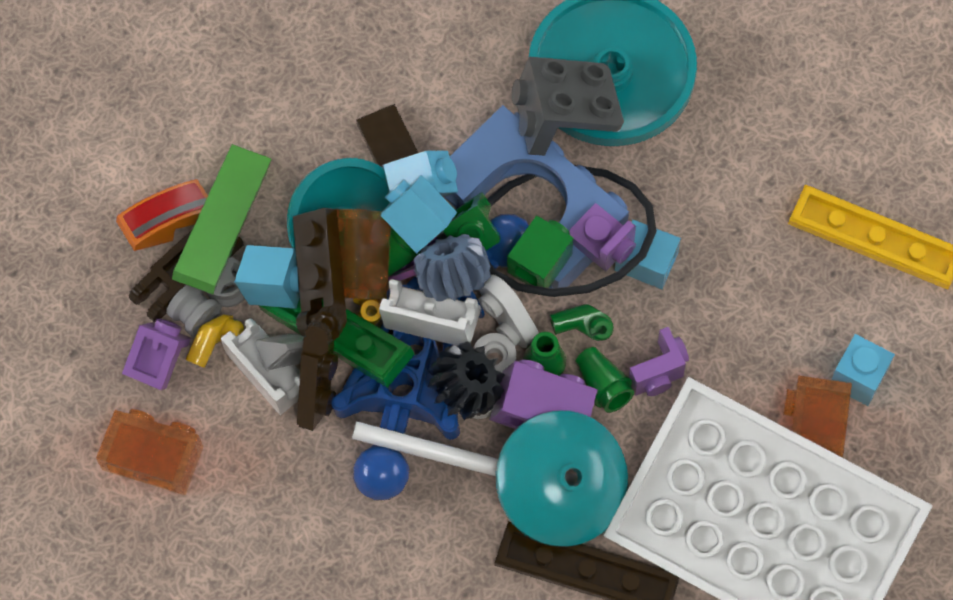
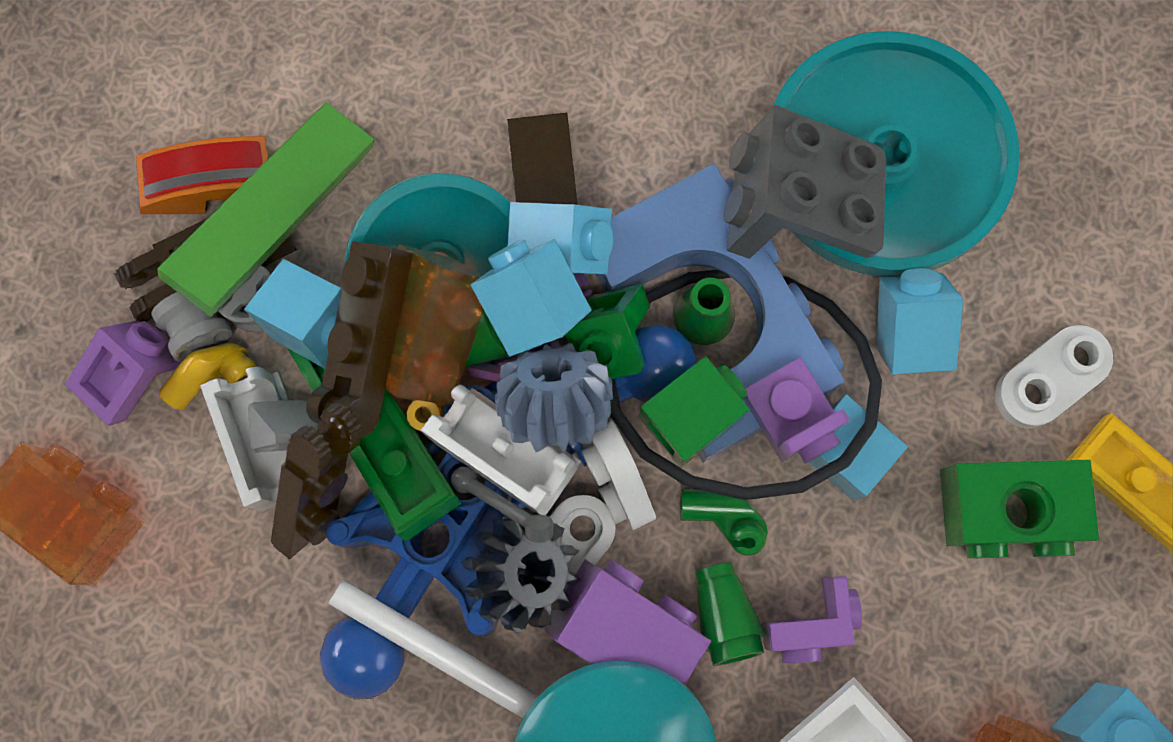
camera: 20 degrees right, 10 degrees up
(467, 341) = (537, 527): none -> dark grey hinge
(527, 198) = (701, 324): none -> green cone
(554, 358) = (632, 558): green cone -> none
(664, 163) = (918, 322): none -> medium azure brick
(764, 172) = (1055, 374): none -> white plate
(777, 238) = (1056, 499): none -> green brick

